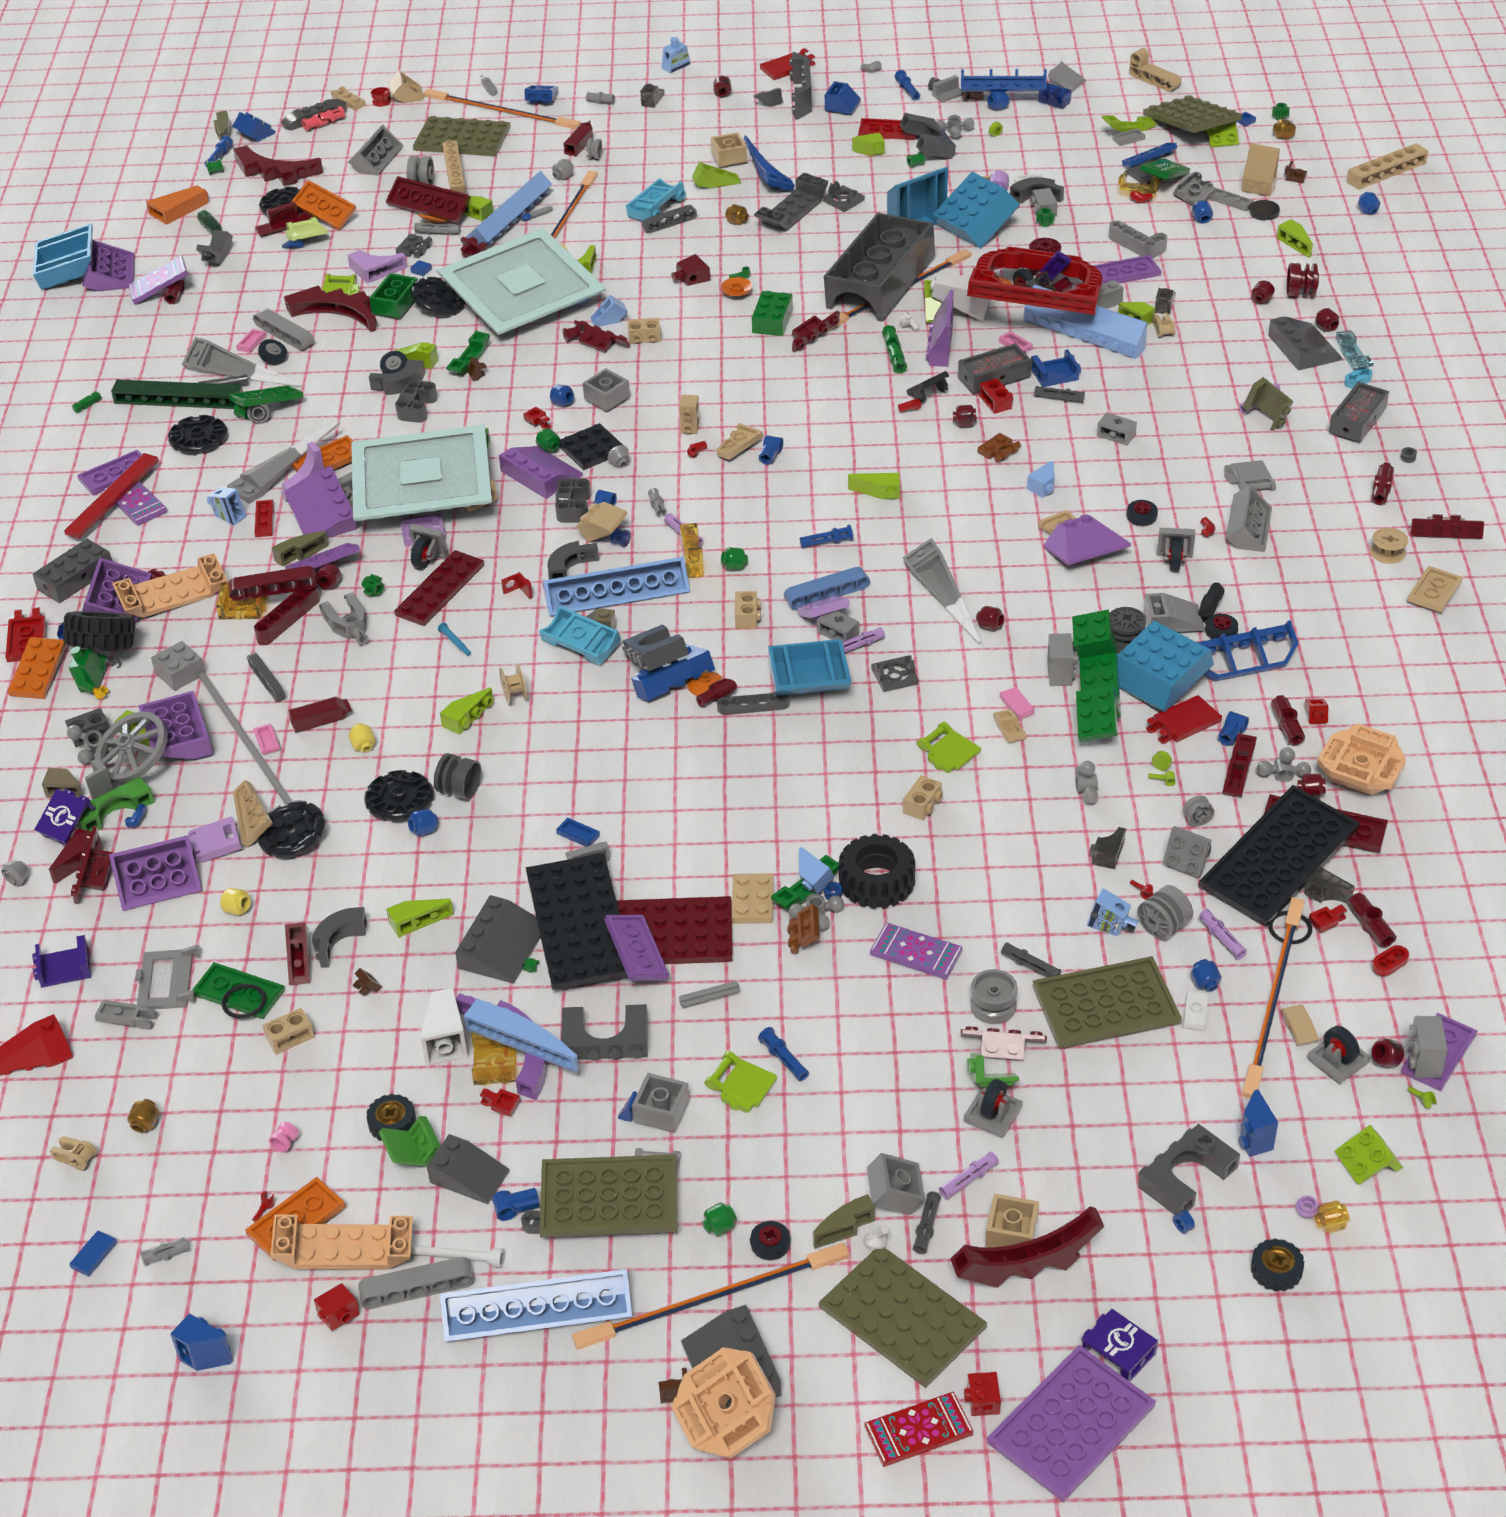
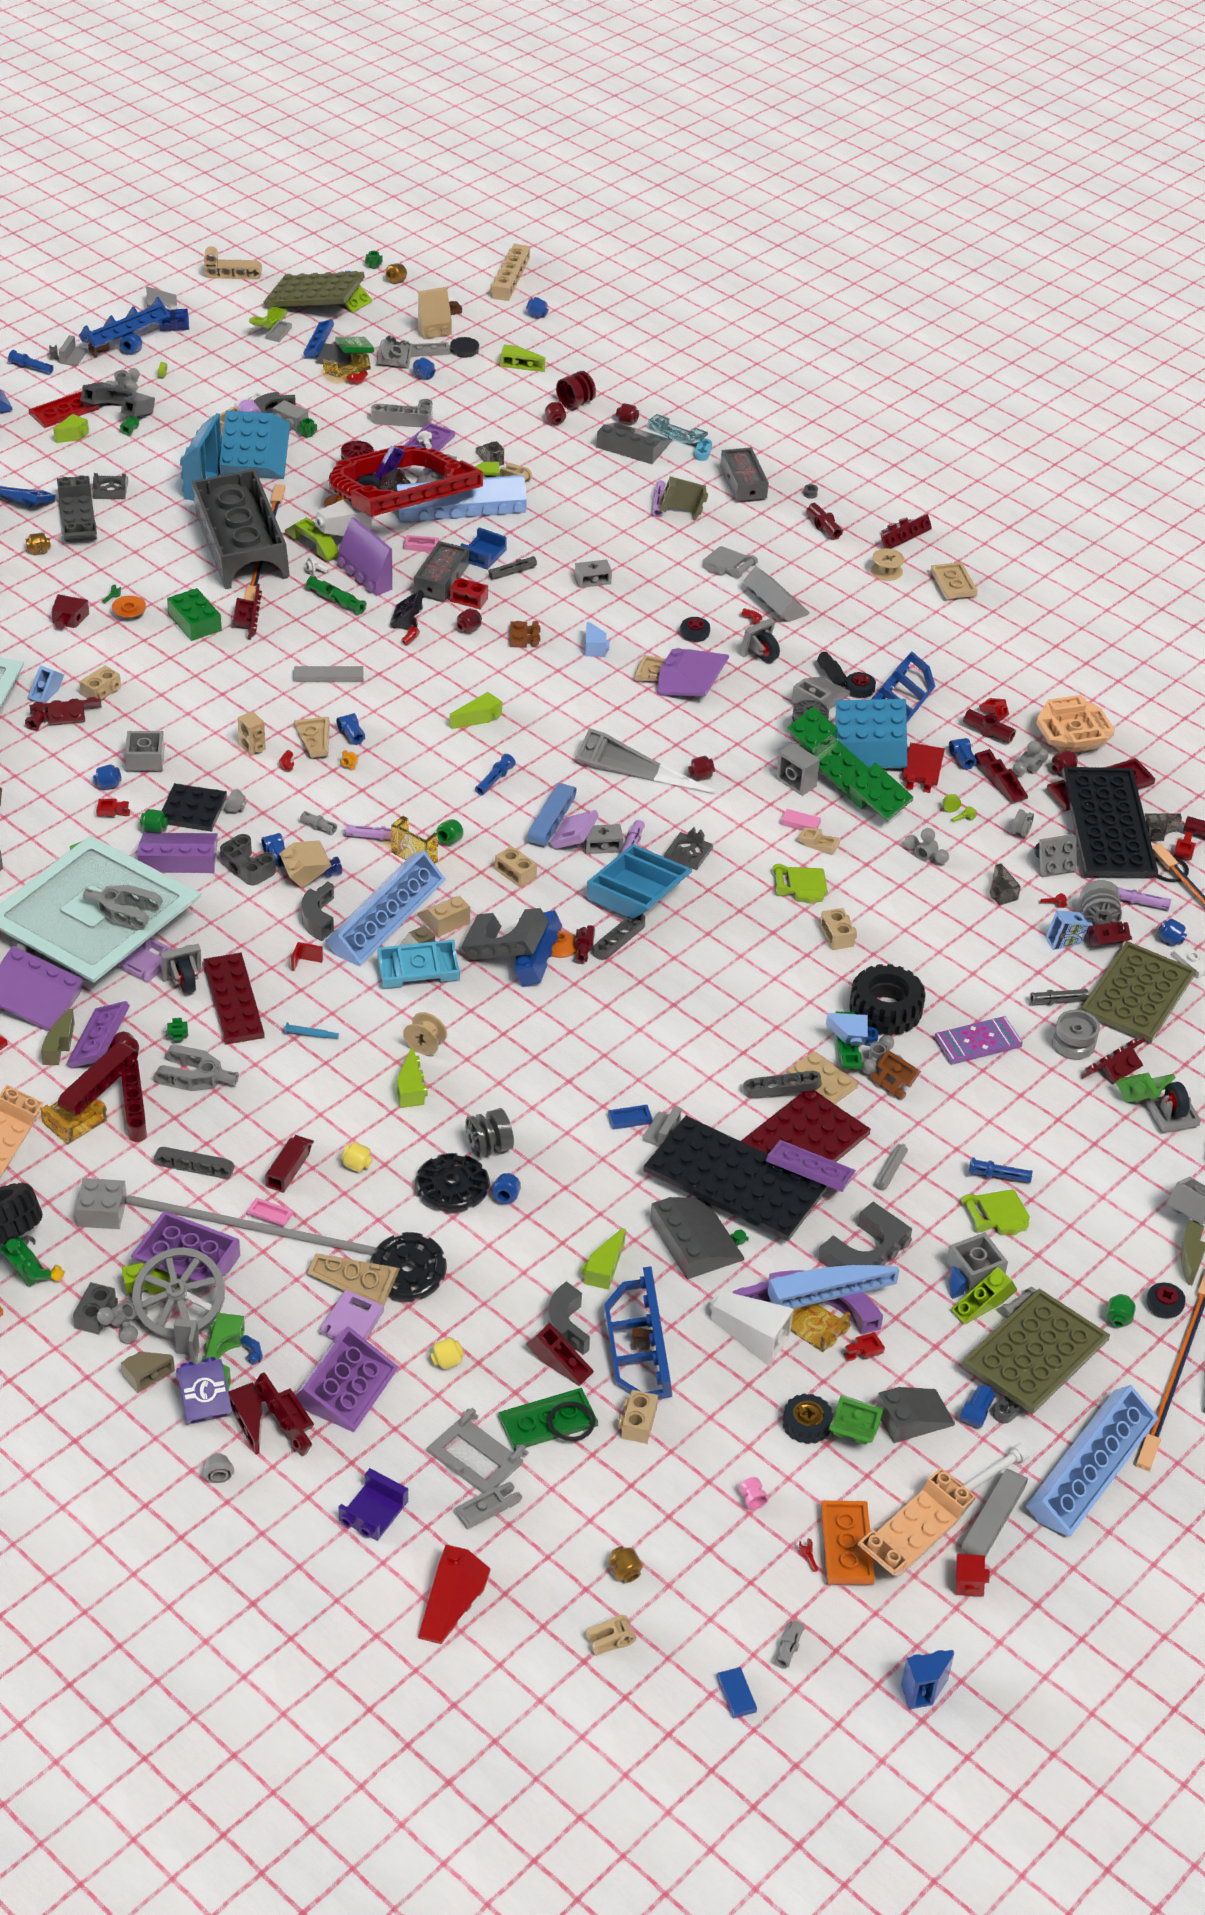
camera: 50 degrees left, 0 degrees up
(390, 948) = (656, 1338): none -> blue plate
(427, 472) = (113, 897): none -> light grey piece
(638, 1132) = (985, 1296): none -> lime slope
(648, 615) = (446, 915): none -> tan slope
(727, 889) = (782, 1084): none -> dark grey beam
(737, 470) = (349, 759): none -> light orange plate
(812, 403) = (328, 673): none -> light grey tile
(1122, 264) = (425, 437): none -> white plate
(1142, 939) = (1108, 933): none -> dark red hinge

